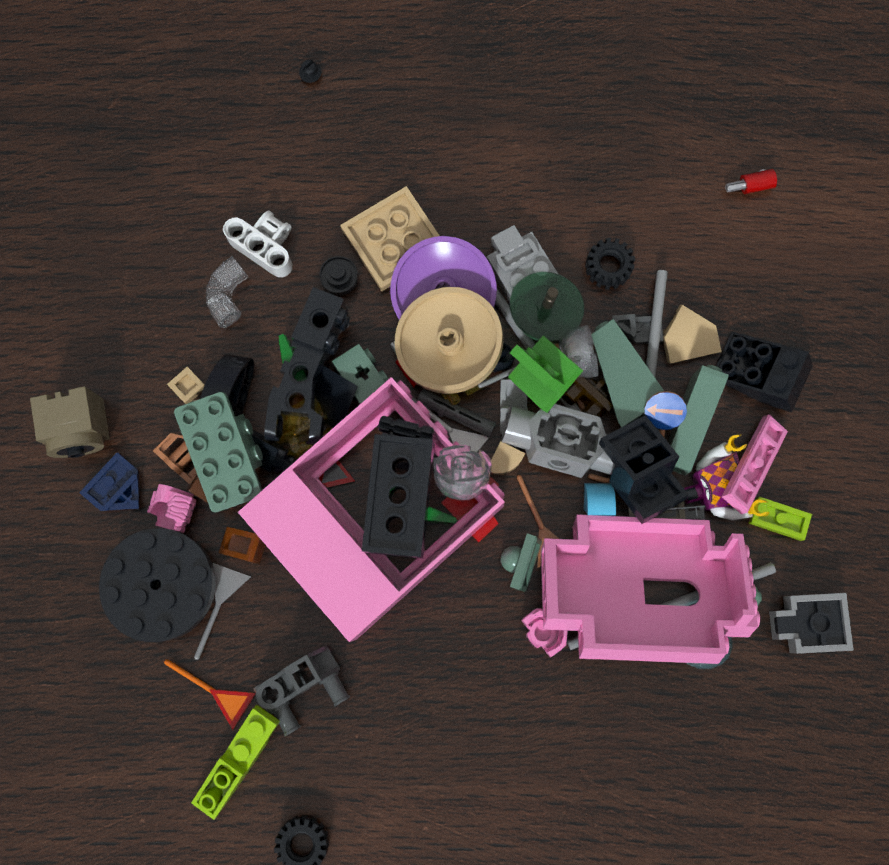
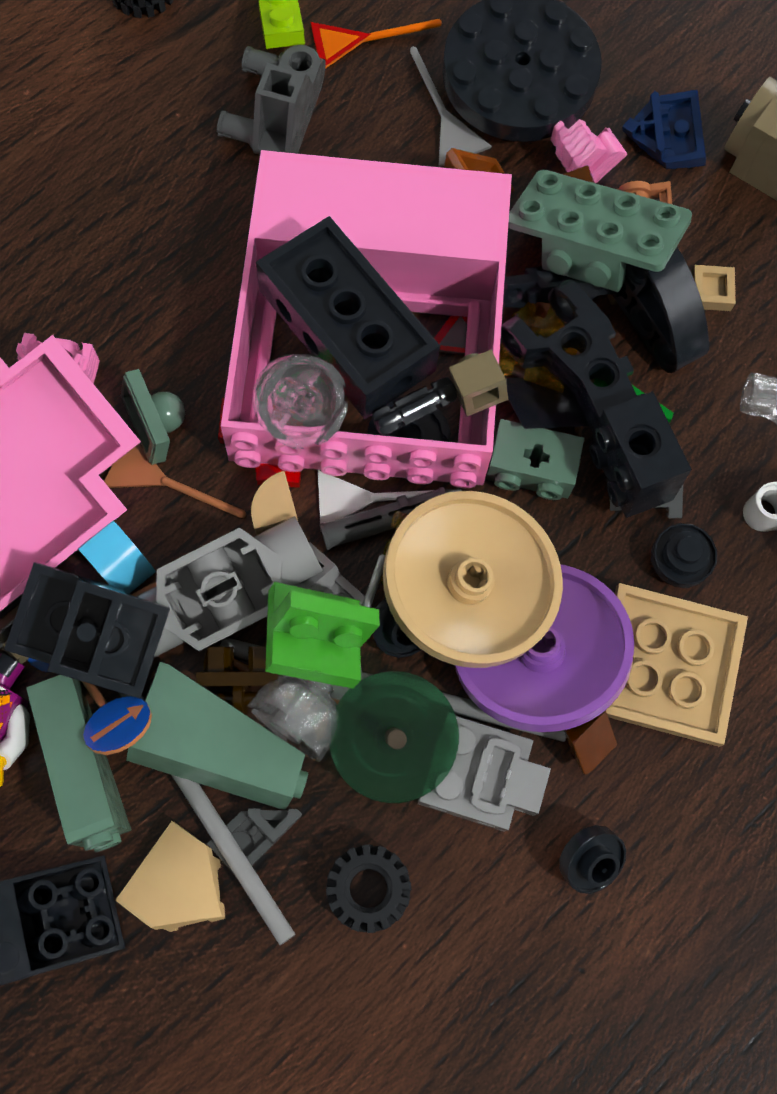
camera: 130 degrees right, 5 degrees down
(367, 411) = (479, 382): none -> dark tan plate
(465, 233) = (591, 742): none -> reddish brown slope
(507, 192) = (592, 859): none -> black plate

